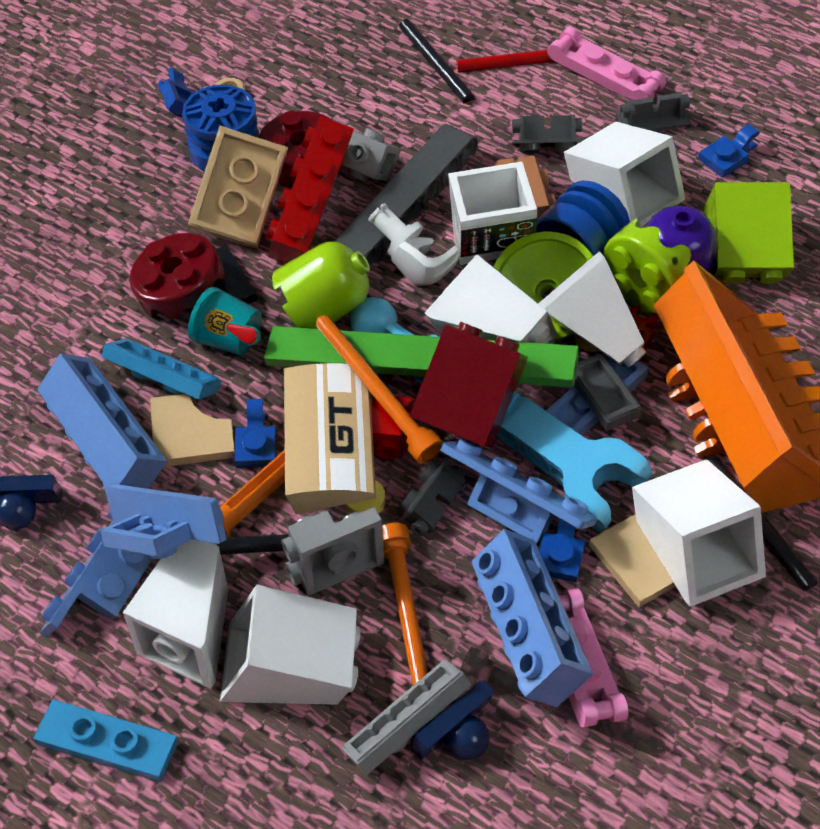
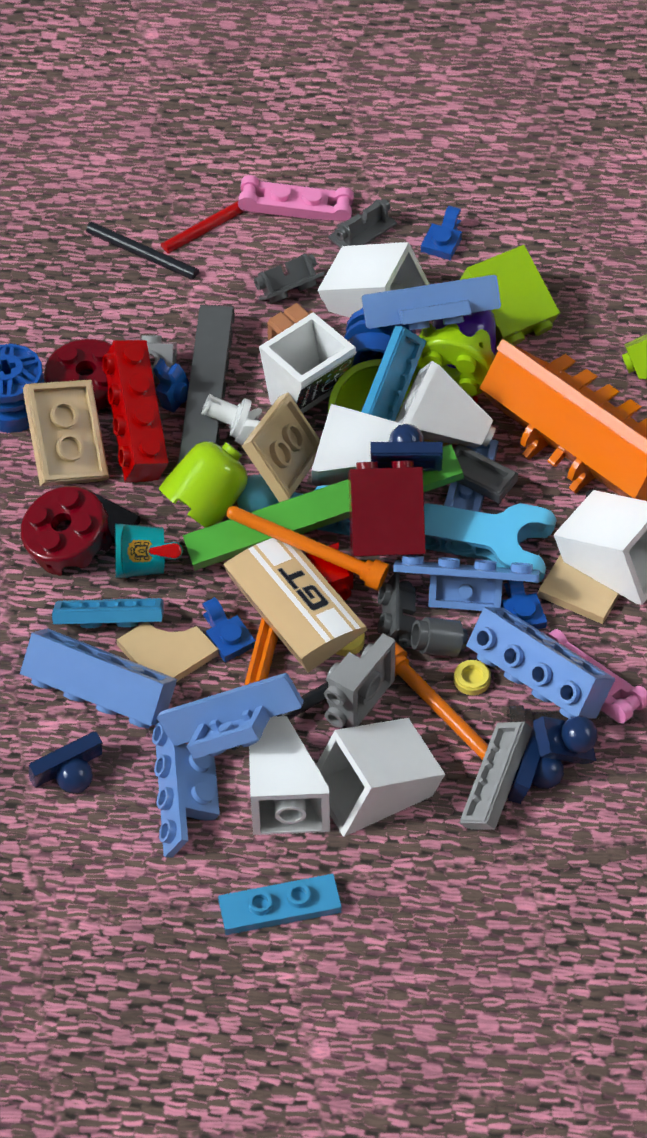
camera: 30 degrees left, 0 degrees up
(367, 181) = (173, 385): none -> blue plate
(412, 279) = (283, 447): none -> tan tile
(451, 539) = (438, 637): none -> dark grey brick
(462, 598) = (472, 677): none -> light yellow tile
(500, 715) = (566, 740): none -> dark blue tile
(524, 326) = (408, 444): none -> dark blue tile
(569, 253) = (394, 374): none -> dark azure plate
(648, 197) = (431, 302): none -> medium blue bracket

